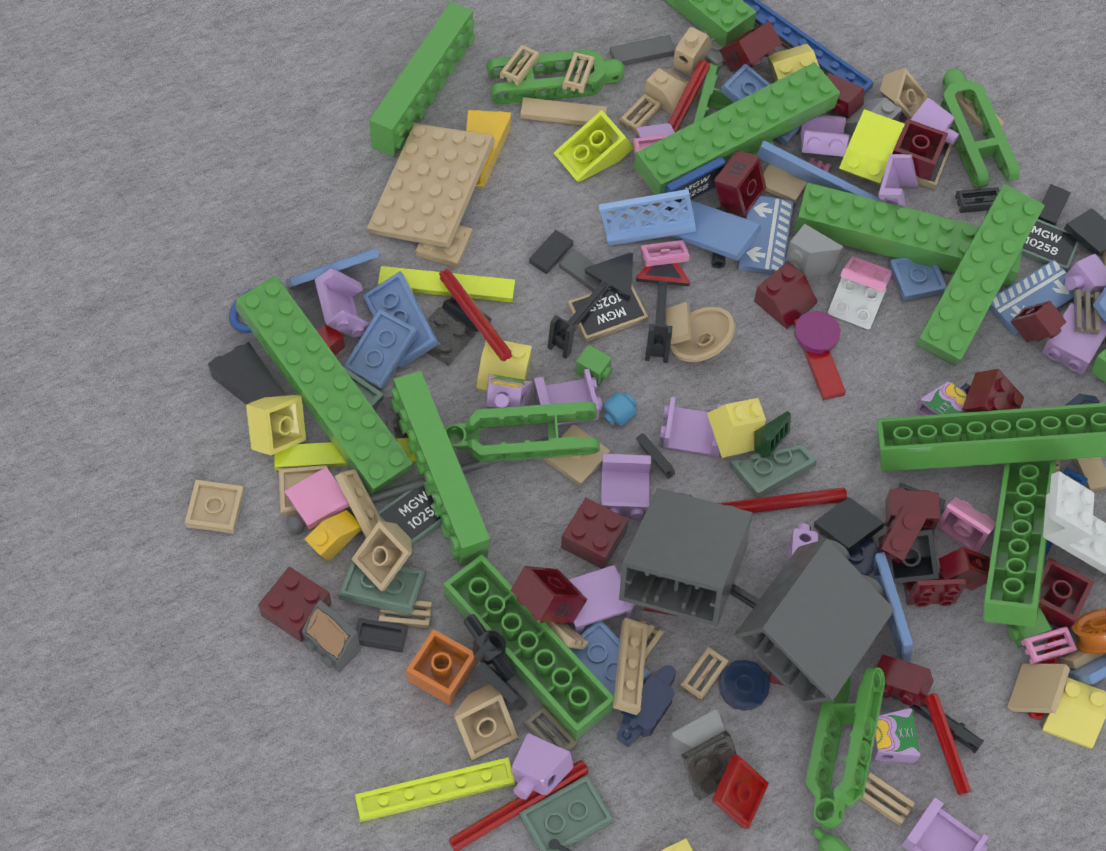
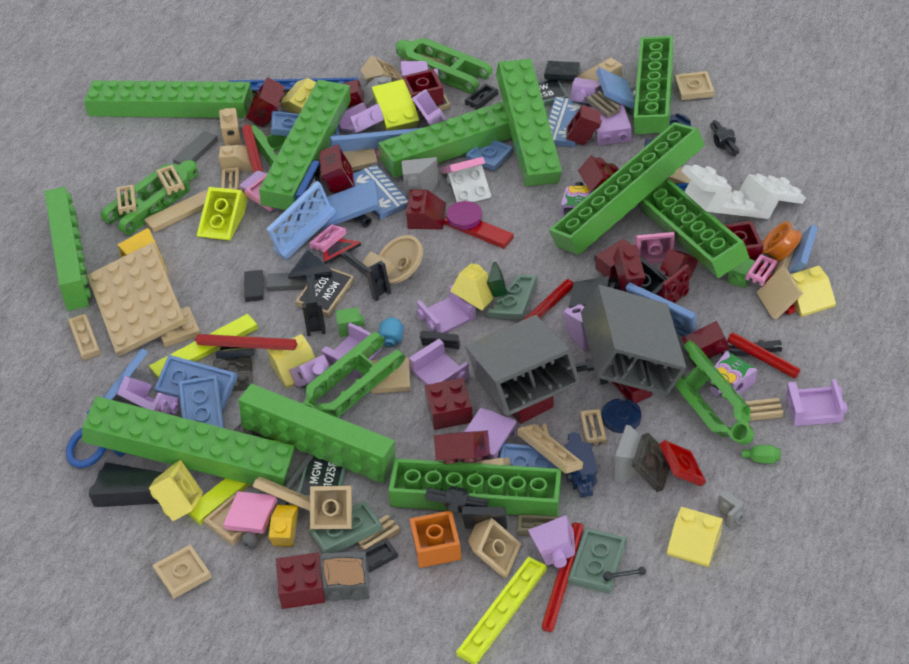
camera: 35 degrees left, 15 degrees down
(358, 188) = (84, 337): none -> tan tile

